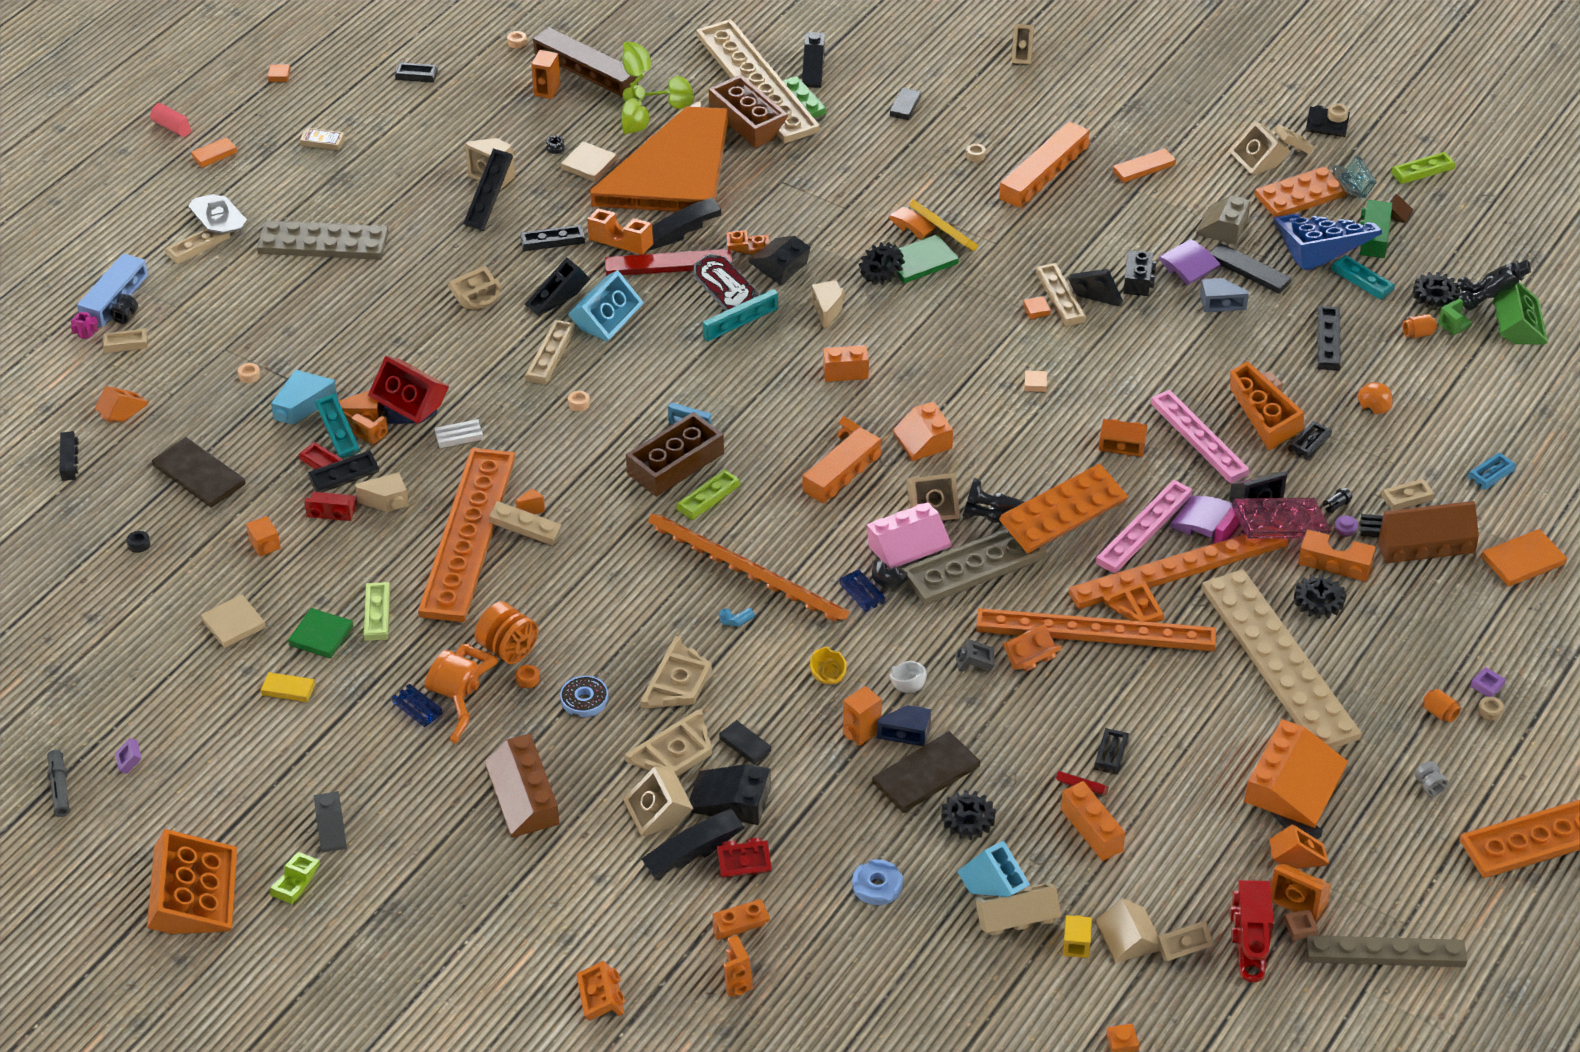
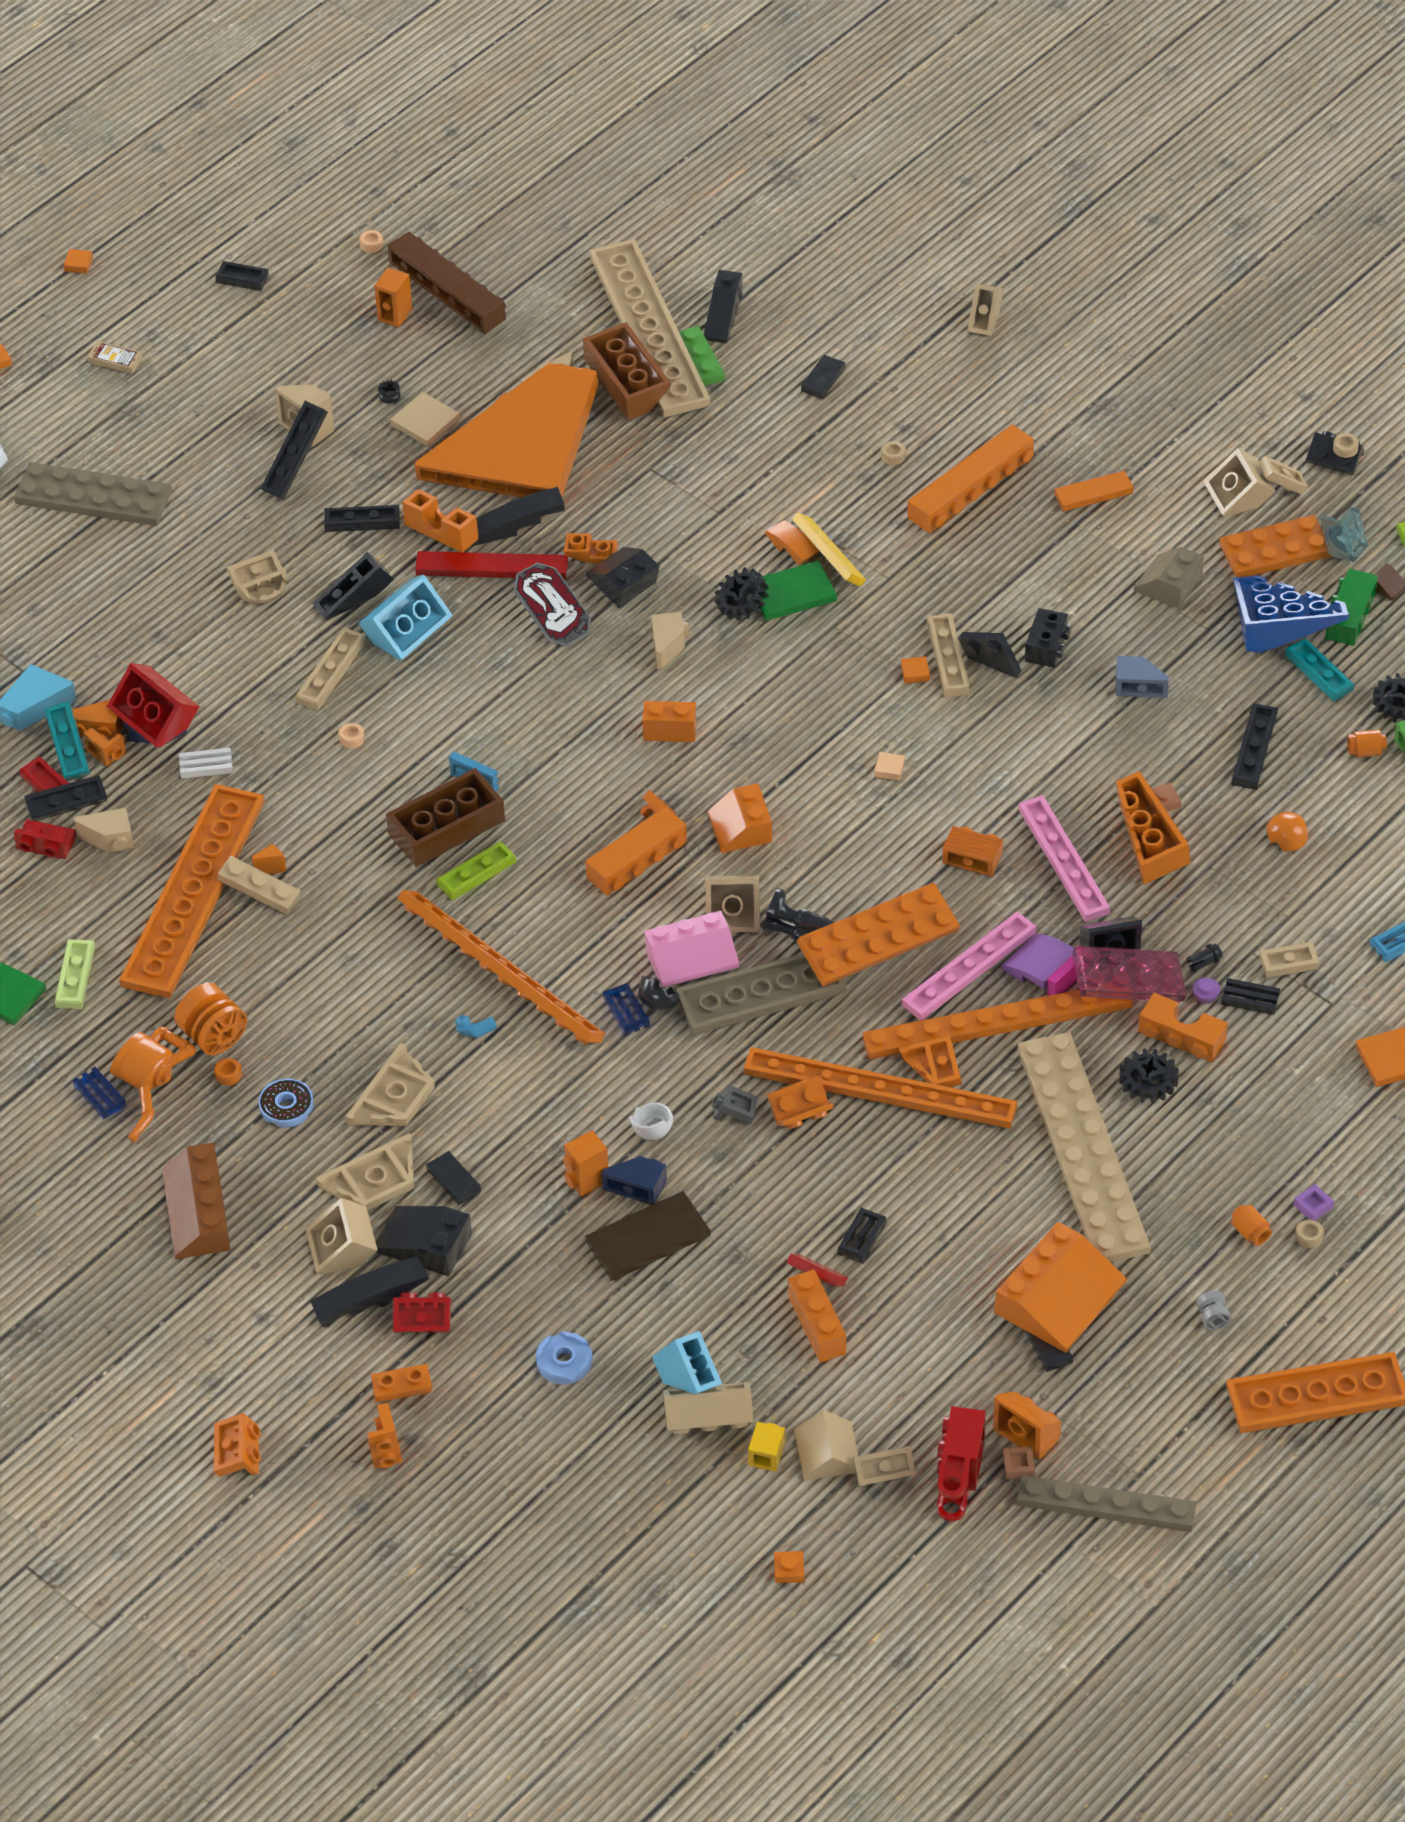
camera: 10 degrees right, 5 degrees up
(635, 62) = (495, 298): lime plant -> none
(740, 315) = (560, 644): teal tile -> none
(828, 666) = (563, 1098): yellow hair -> none
(968, 814) = (680, 1292): black gear -> none
(1189, 261) = (1113, 628): medium lavender slope -> none
(1251, 268) = (1185, 643): tile -> none
(1298, 849) = (1038, 1375): orange slope -> none
(1315, 440) = (1198, 879): black tile -> none
(1429, 532) = (1296, 1011): dark orange slope -> none

